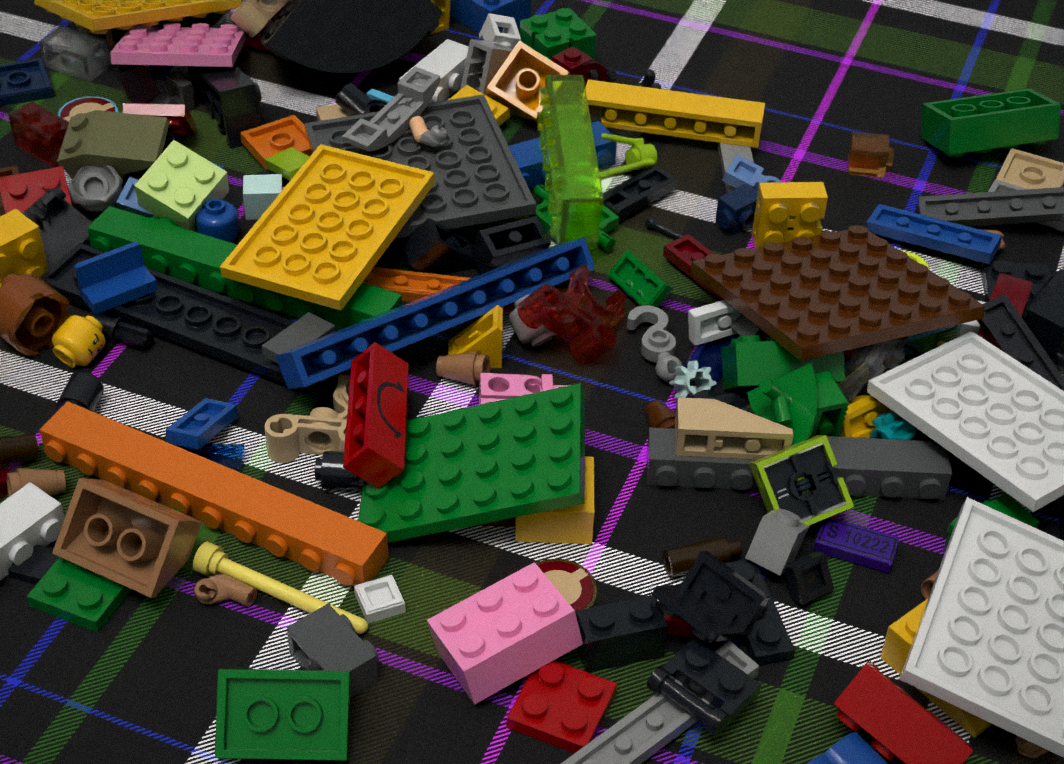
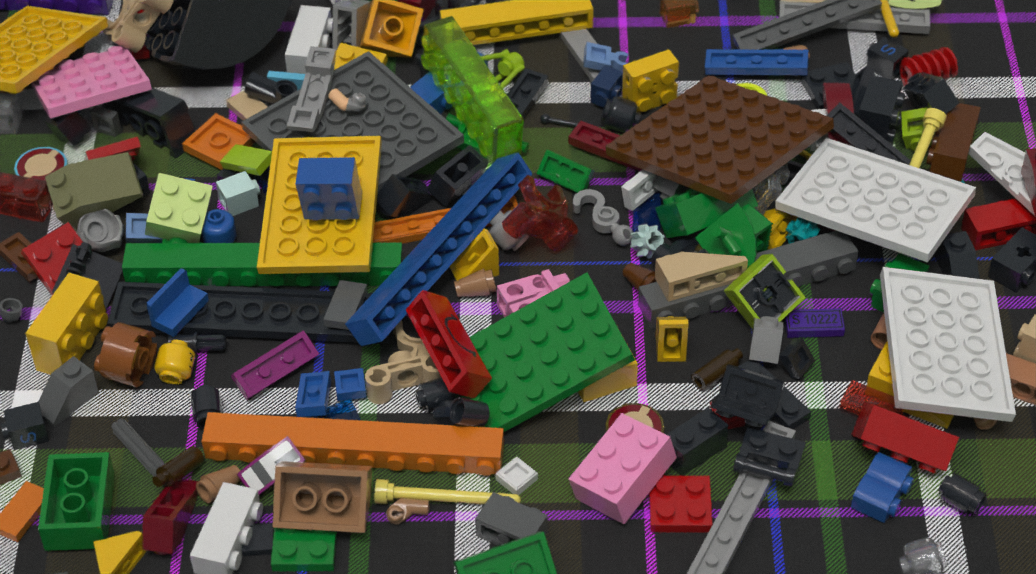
camera: 20 degrees left, 5 degrees up
(114, 470) = (261, 471): none -> slope
(183, 379) = (274, 365): none -> magenta plate
(249, 428) = (350, 384): none -> blue plate
(334, 202) = (329, 188): none -> blue brick
(351, 499) = (462, 413): none -> black piece
(658, 500) = (671, 339): none -> yellow slope
(737, 235) = (620, 114): none -> black head
(870, 647) = (859, 393): none -> clear red plate

